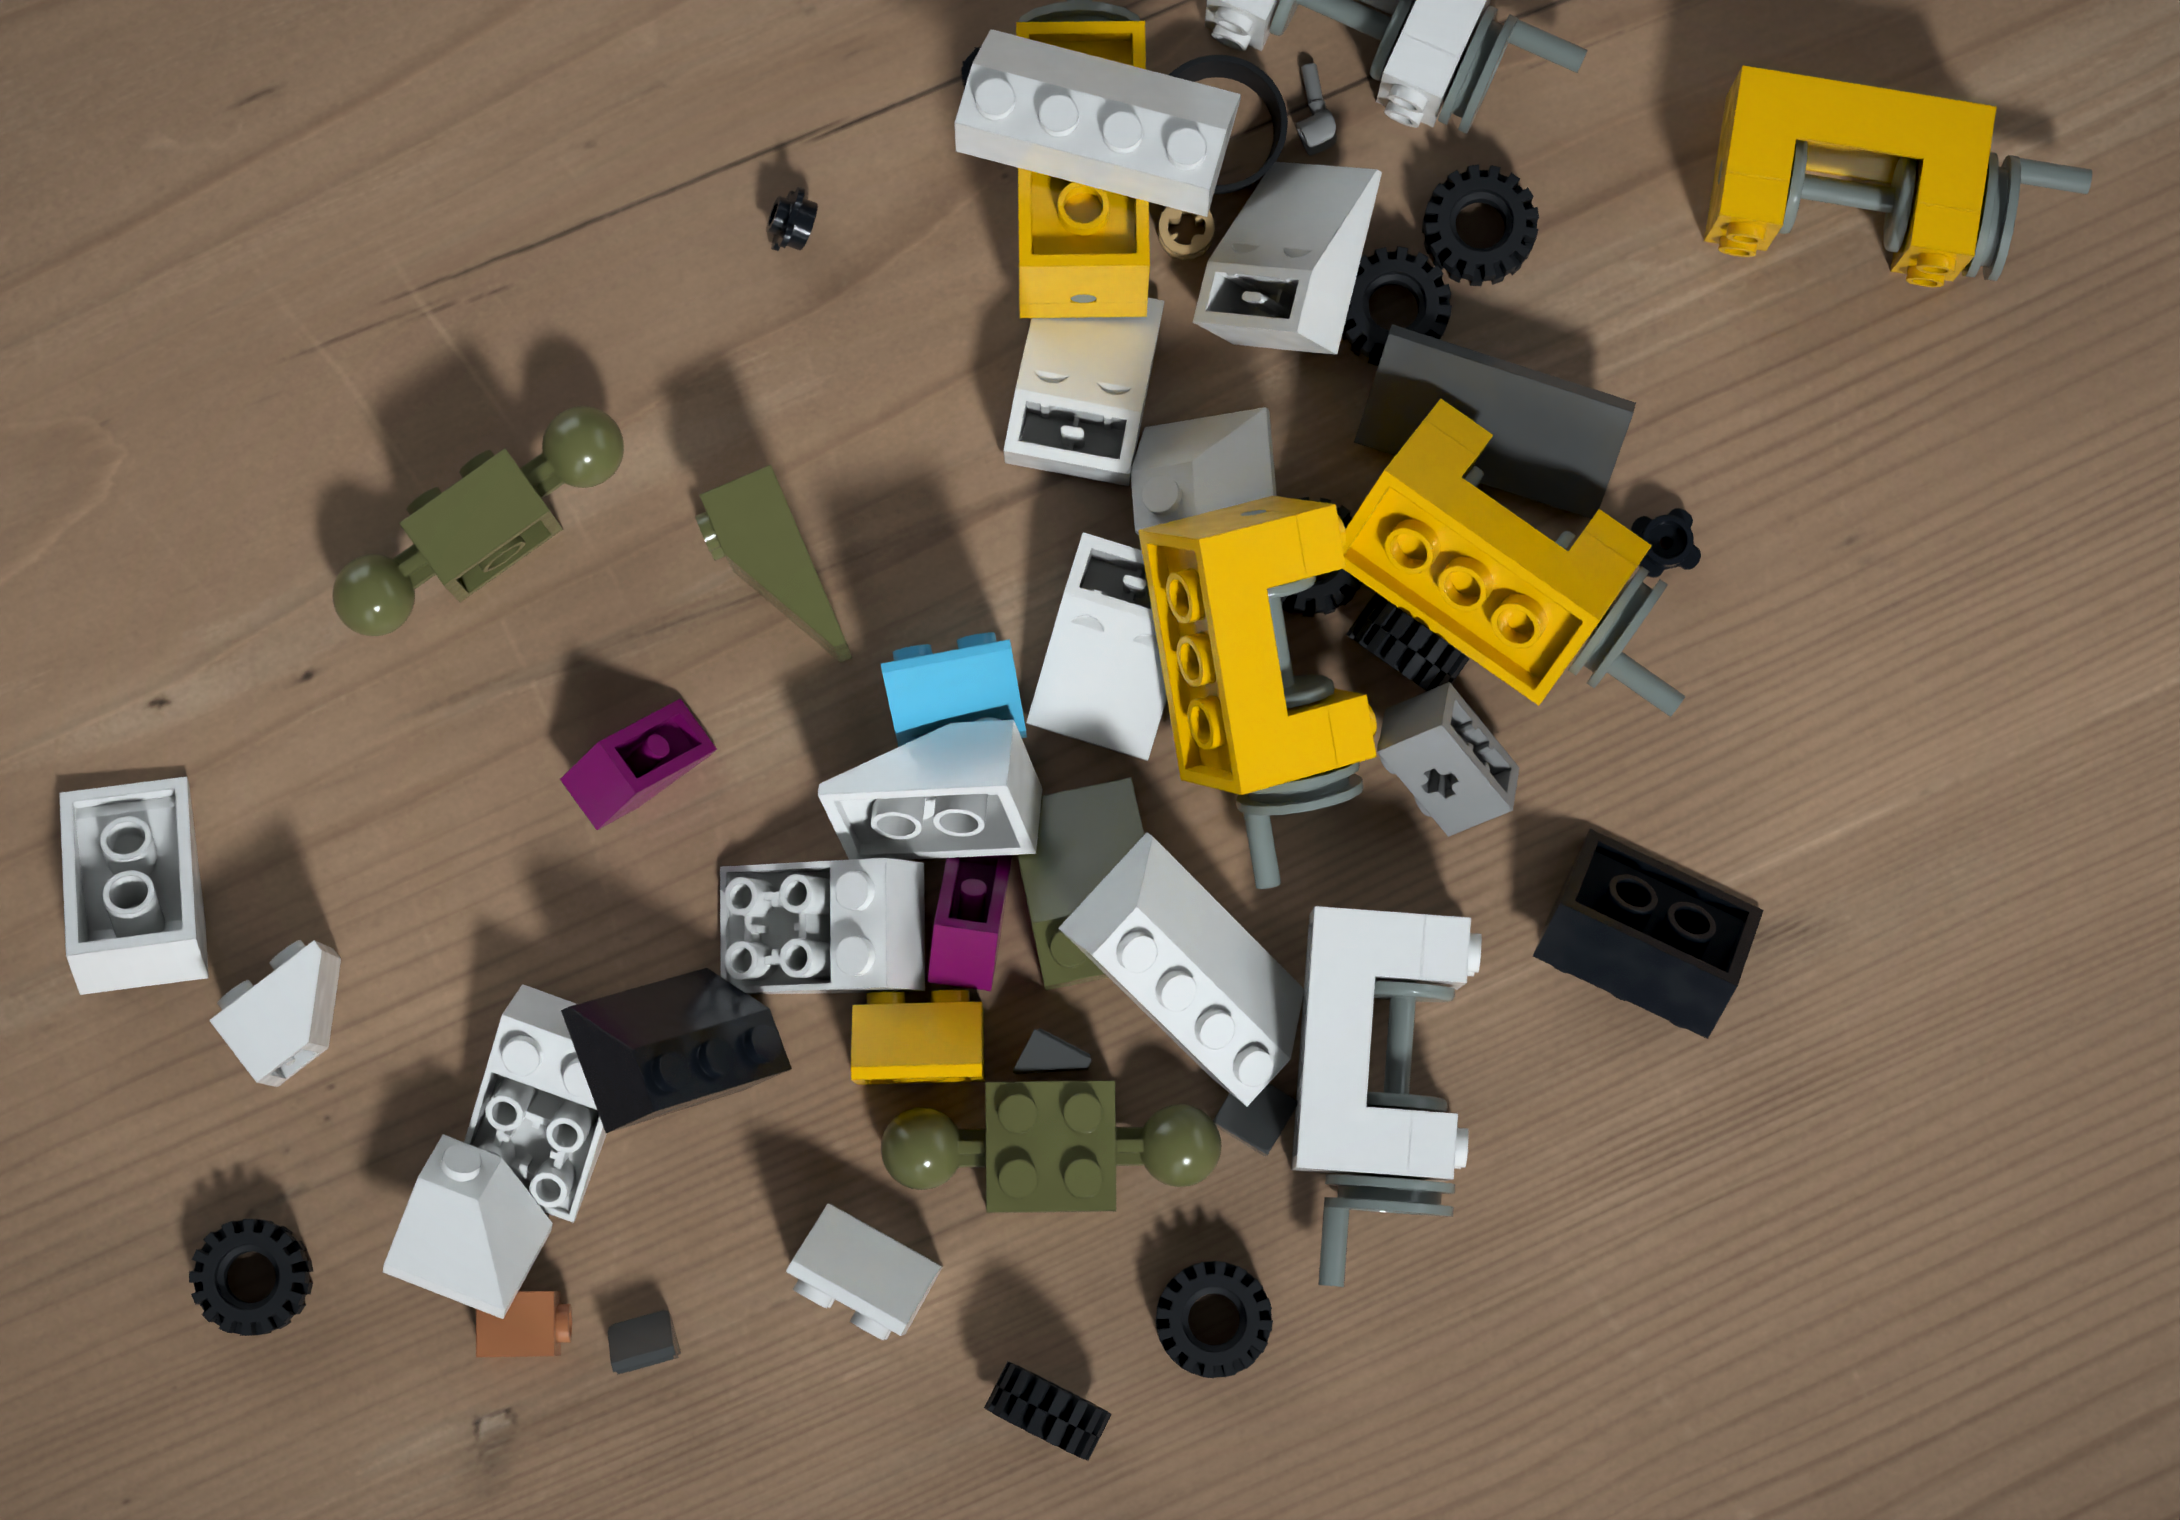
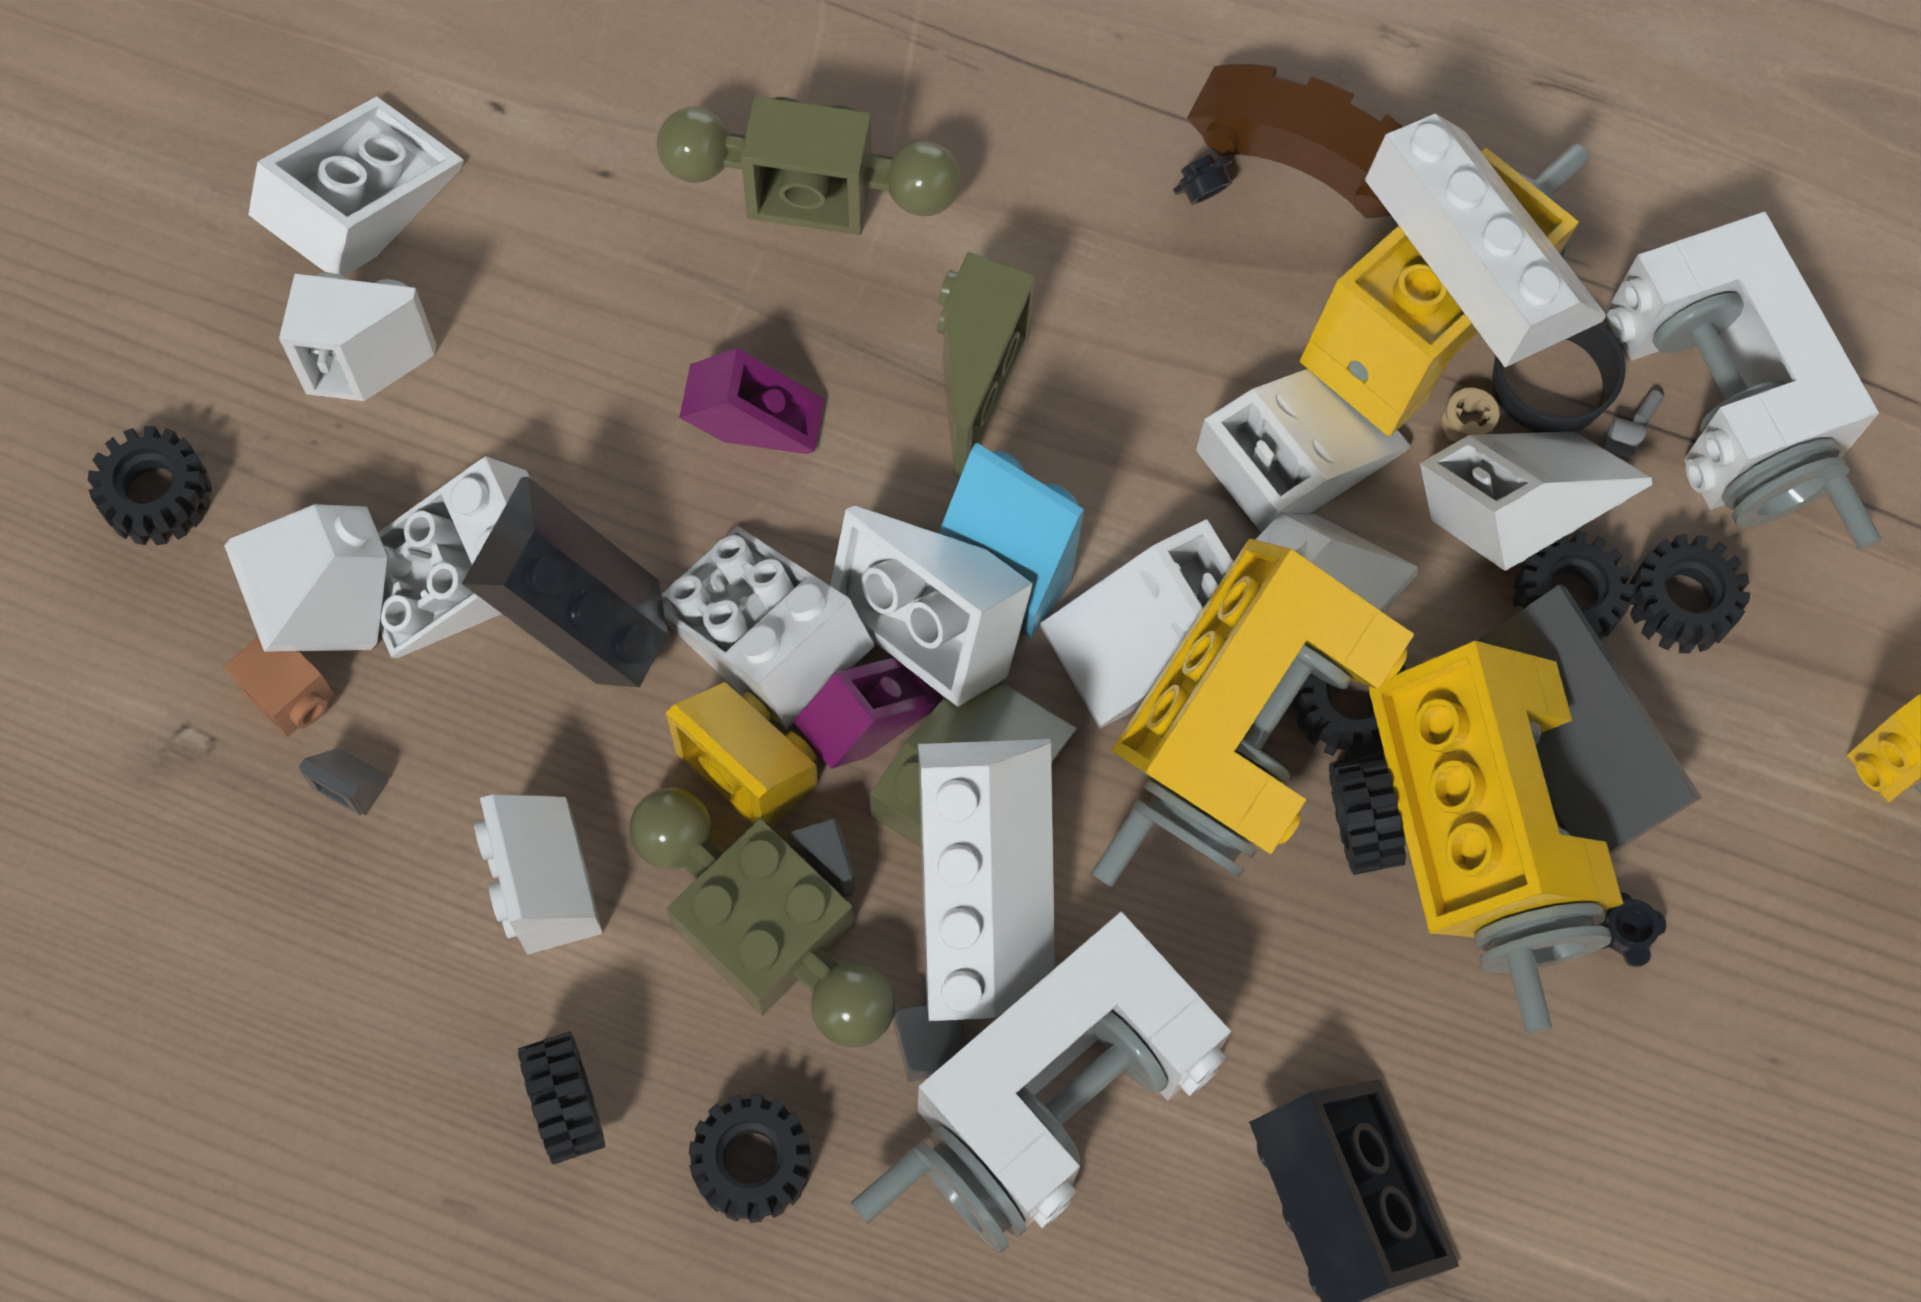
camera: 40 degrees right, 15 degrees down
(841, 103) = (1295, 124): none -> reddish brown brick
(1448, 759) = (1321, 915): light grey brick -> none

